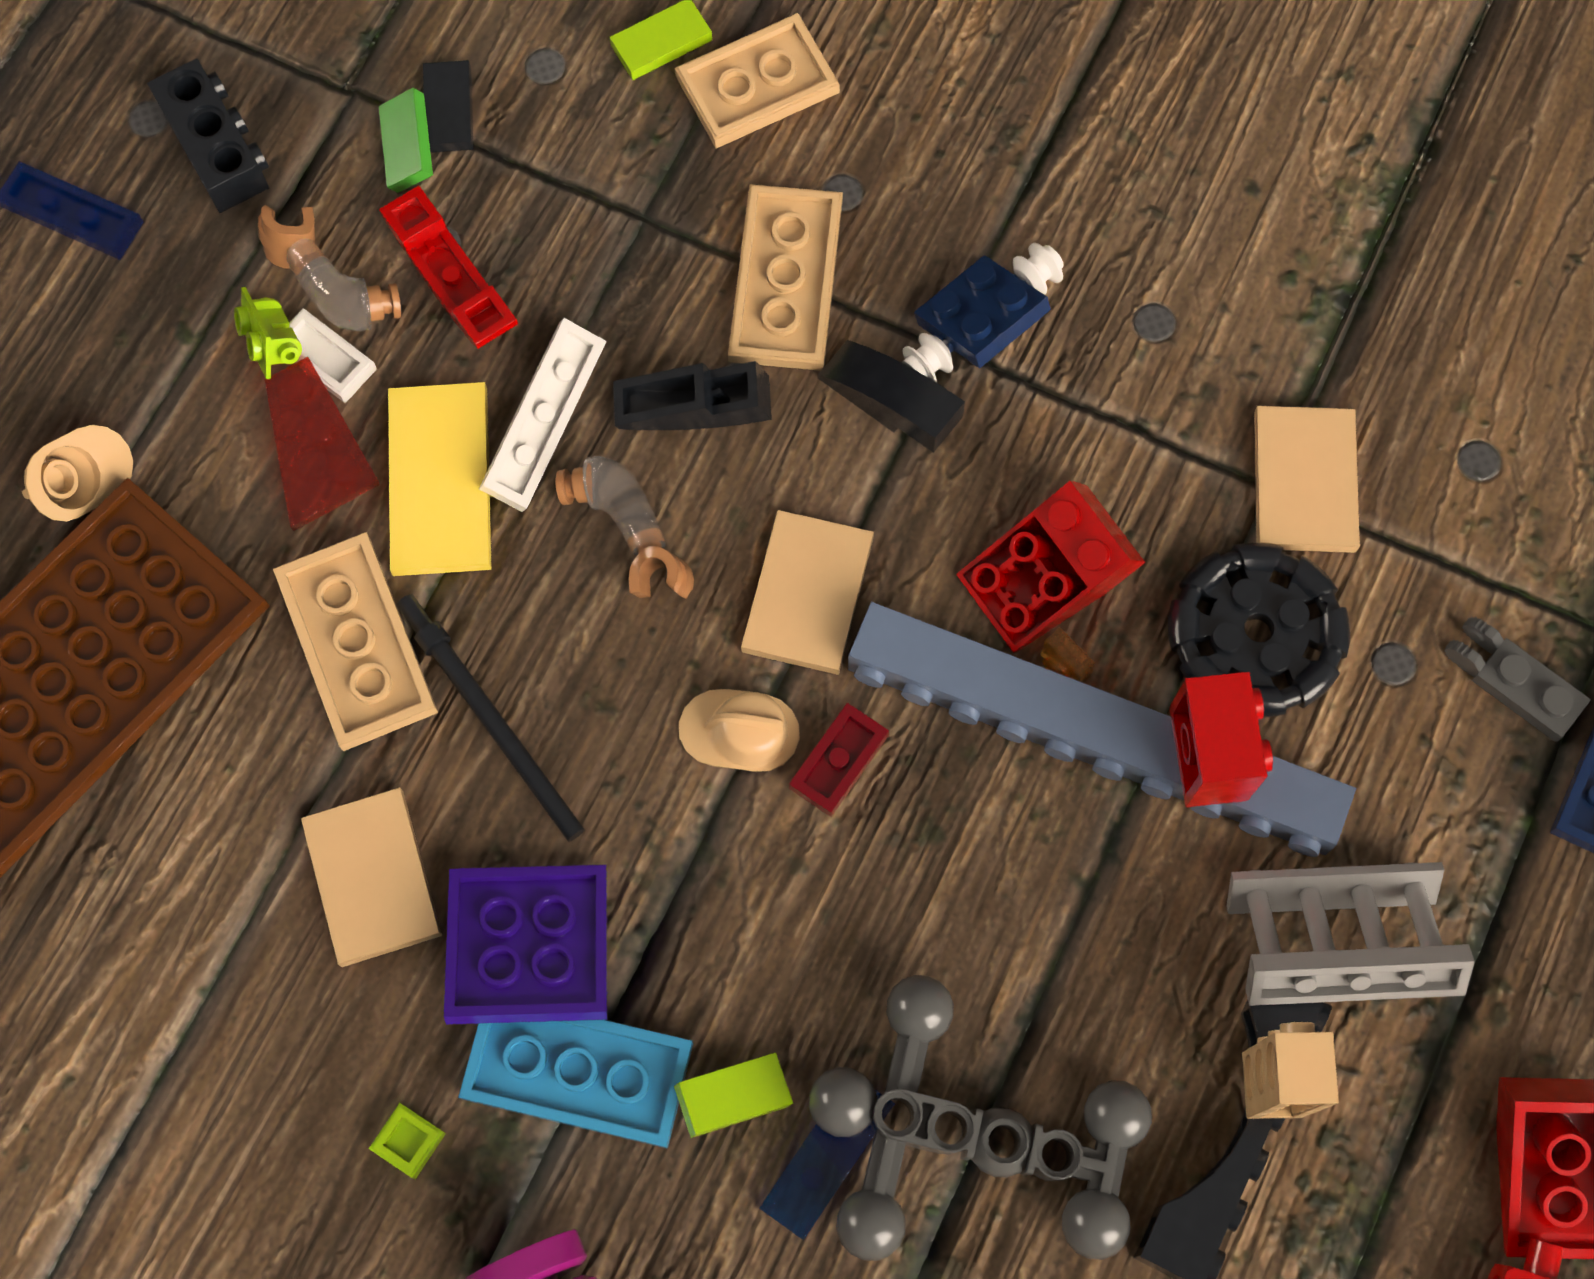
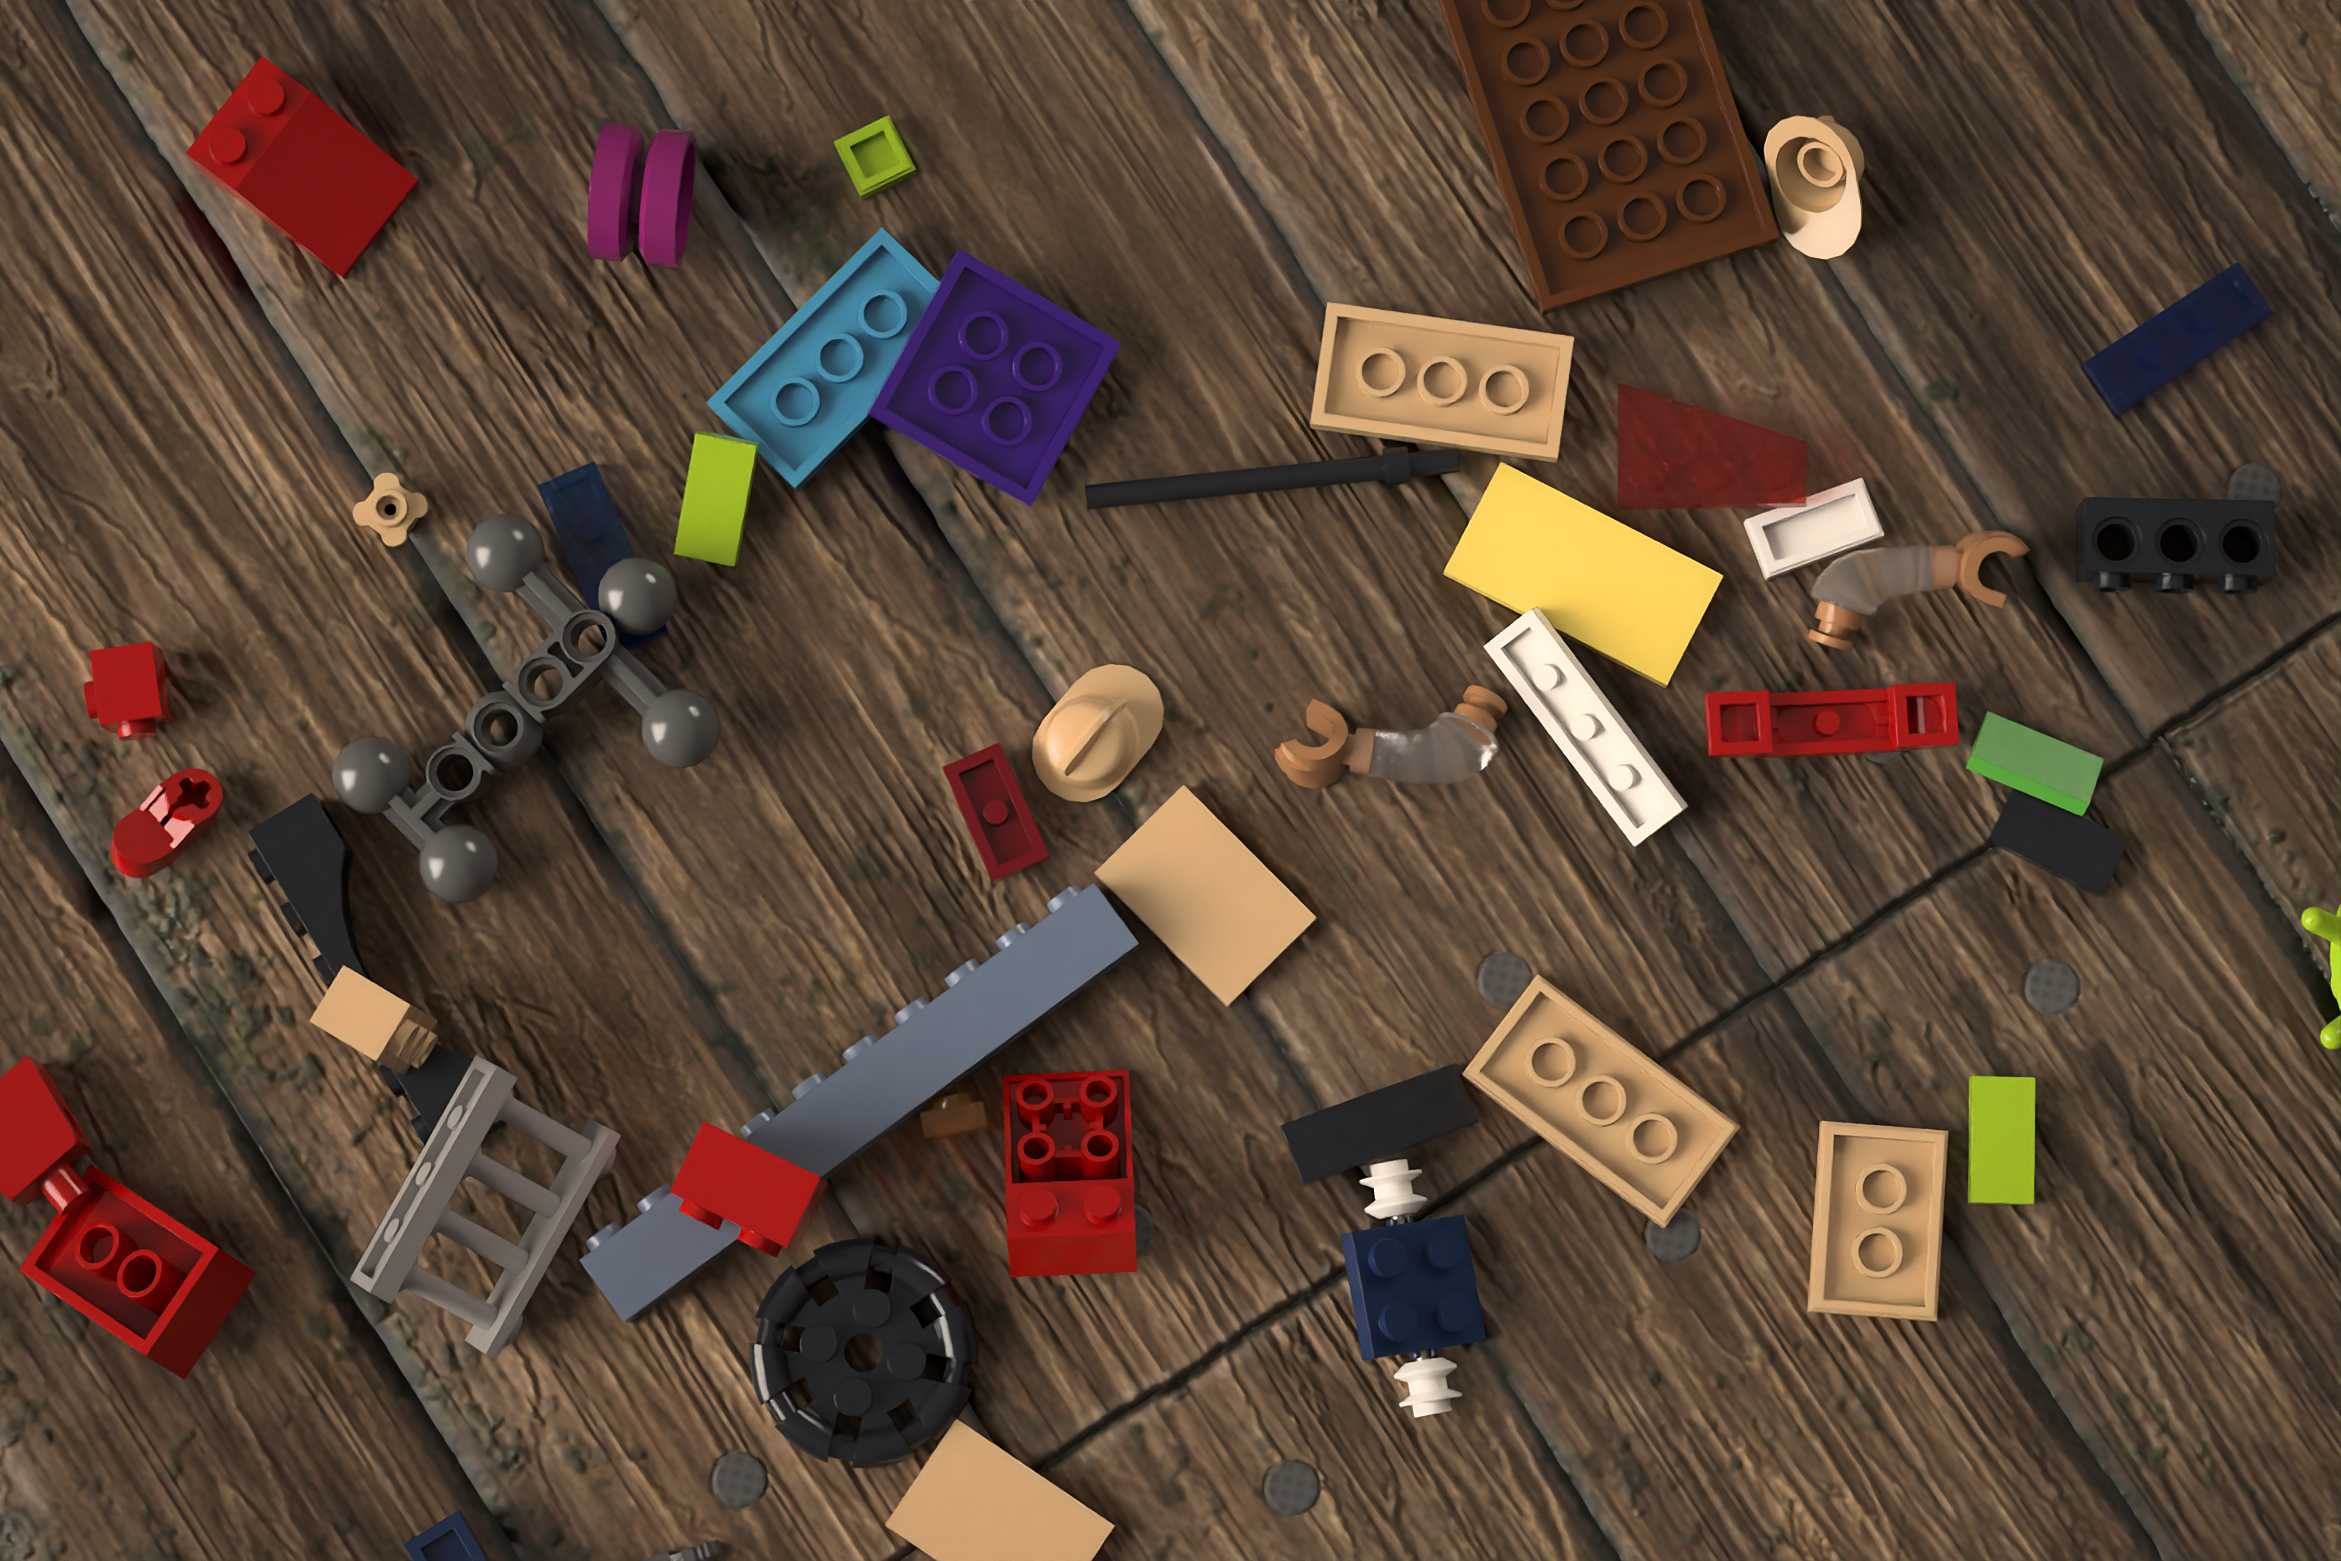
camera: 120 degrees right, 10 degrees up
(266, 332) = (1889, 475): lime hinge -> none
(371, 877) = (1170, 264): tan tile -> none
(693, 398) = (1506, 902): black slope -> none

